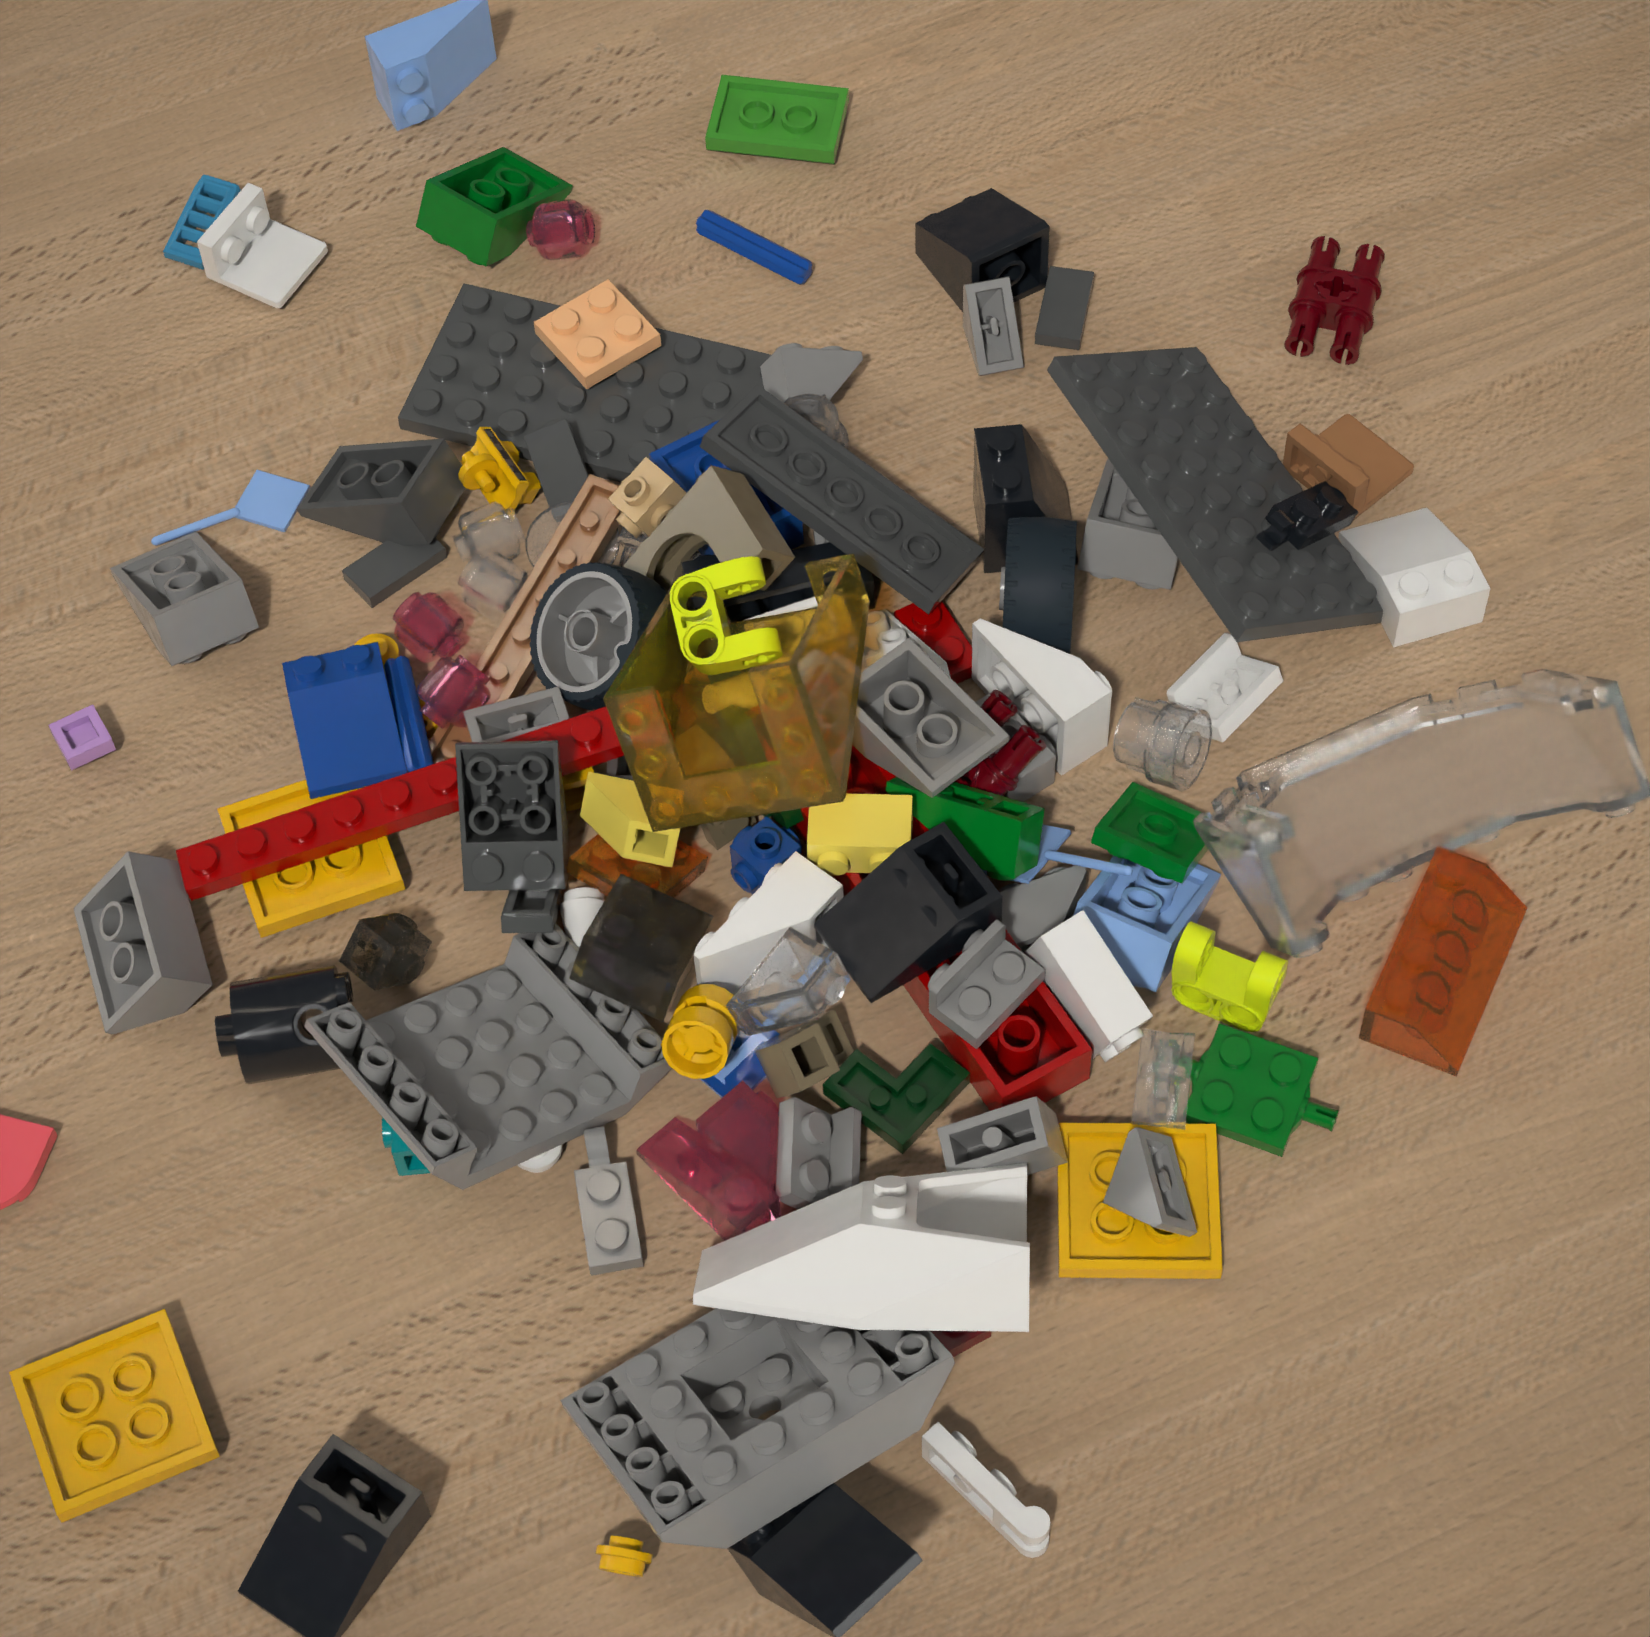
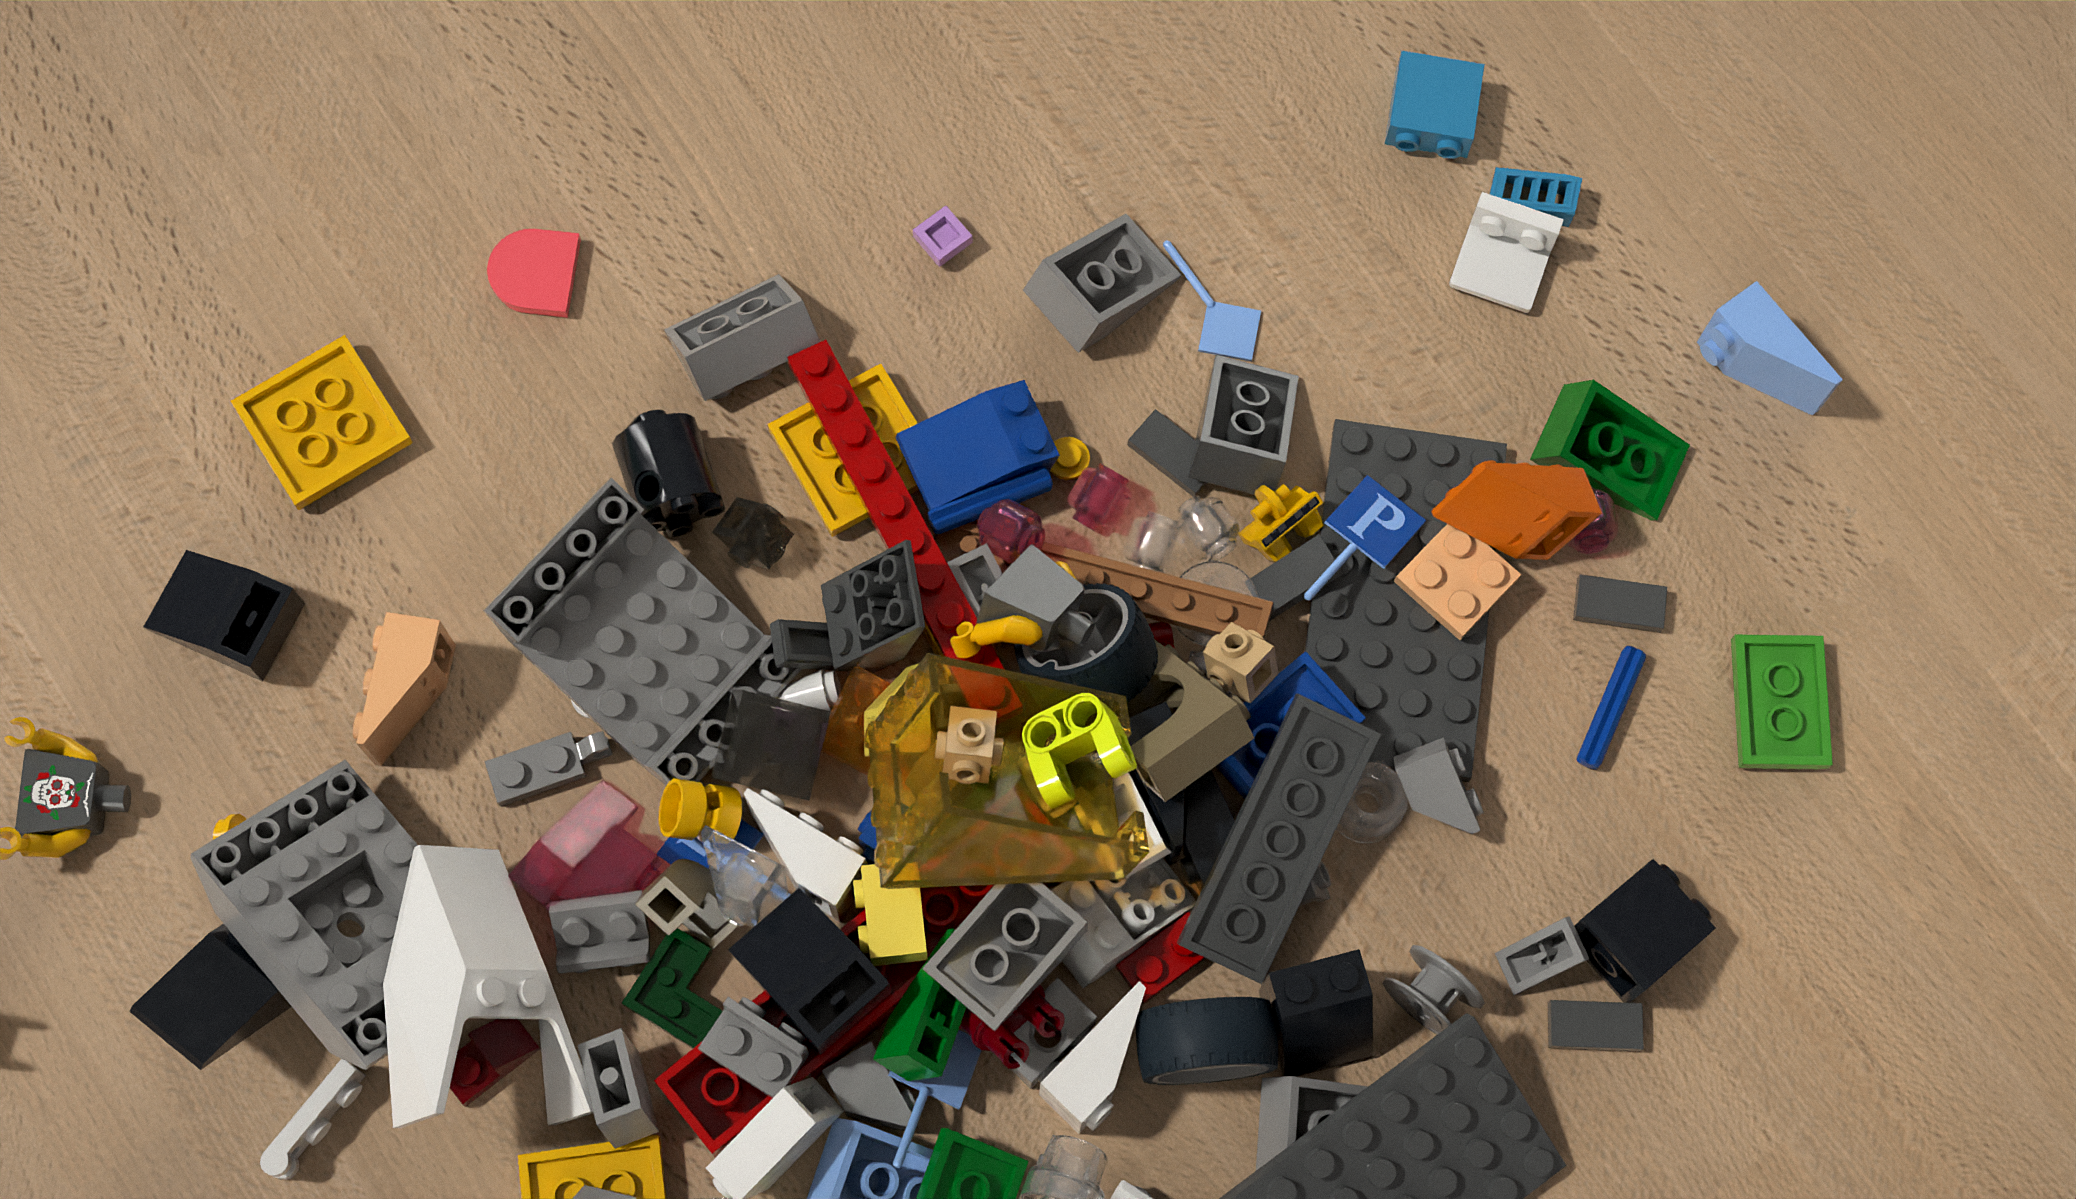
camera: 75 degrees right, 15 degrees up
(79, 285) = (1434, 105): none -> dark azure piece
(466, 1325) = (404, 683): none -> light nougat slope
(524, 390) = (1371, 523): none -> blue piece
(544, 255) = (1521, 507): none -> orange slope
(553, 655) = (1027, 607): none -> torso
(650, 225) = (1620, 603): none -> dark grey tile
(701, 715) = (969, 745): none -> tan brick
(1011, 400) = (1433, 990): none -> light grey piece

